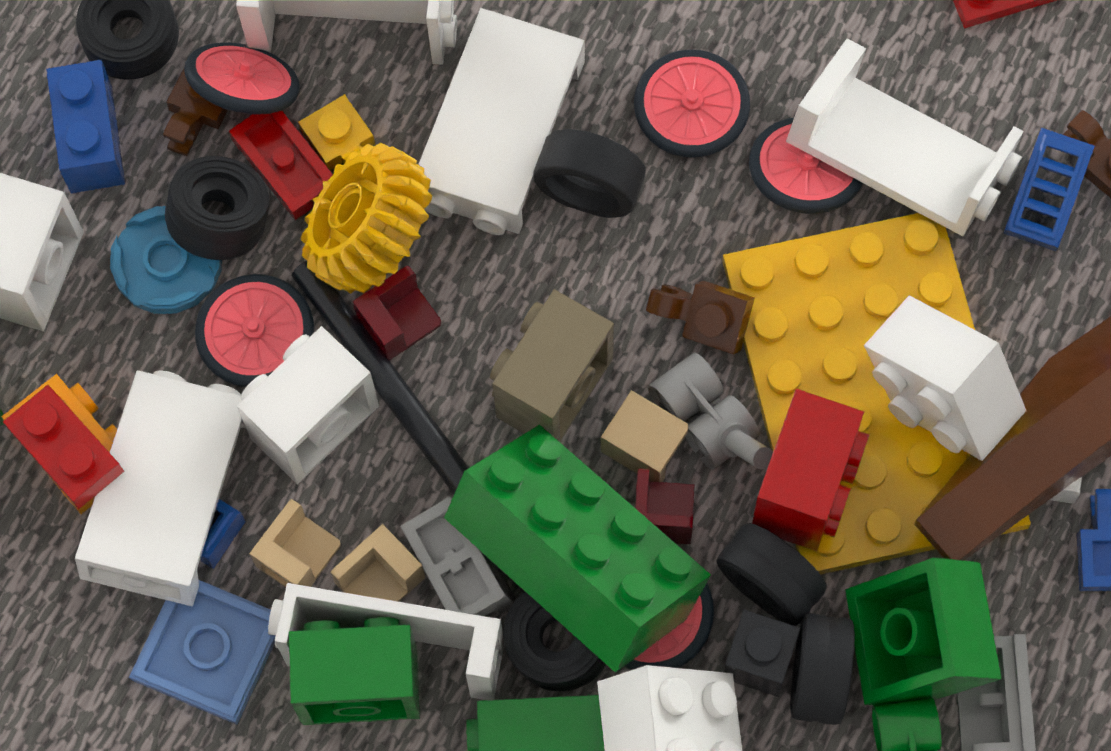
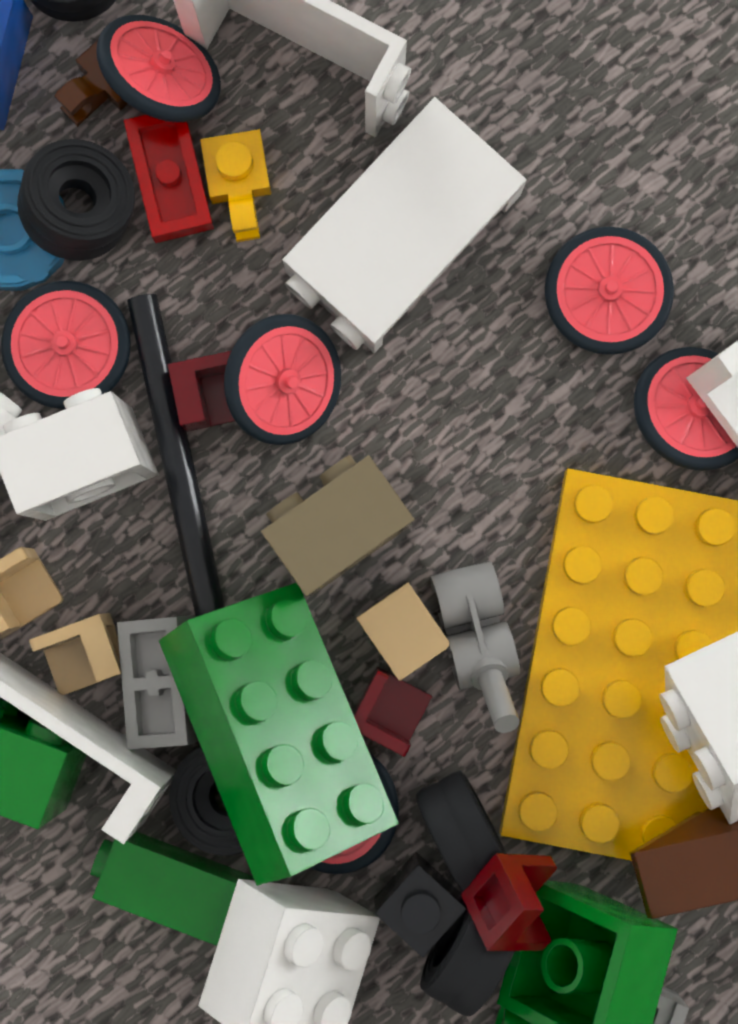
camera: 20 degrees right, 15 degrees up
(366, 218) = (217, 282): yellow gear -> none
(454, 279) = (282, 379): none -> coral wheel
(589, 173) = (468, 328): black tyre -> none
(711, 313) = (527, 527): reddish brown plate -> none
(804, 477) = (549, 762): red brick -> none
(826, 594) = (506, 902): none -> dark red panel

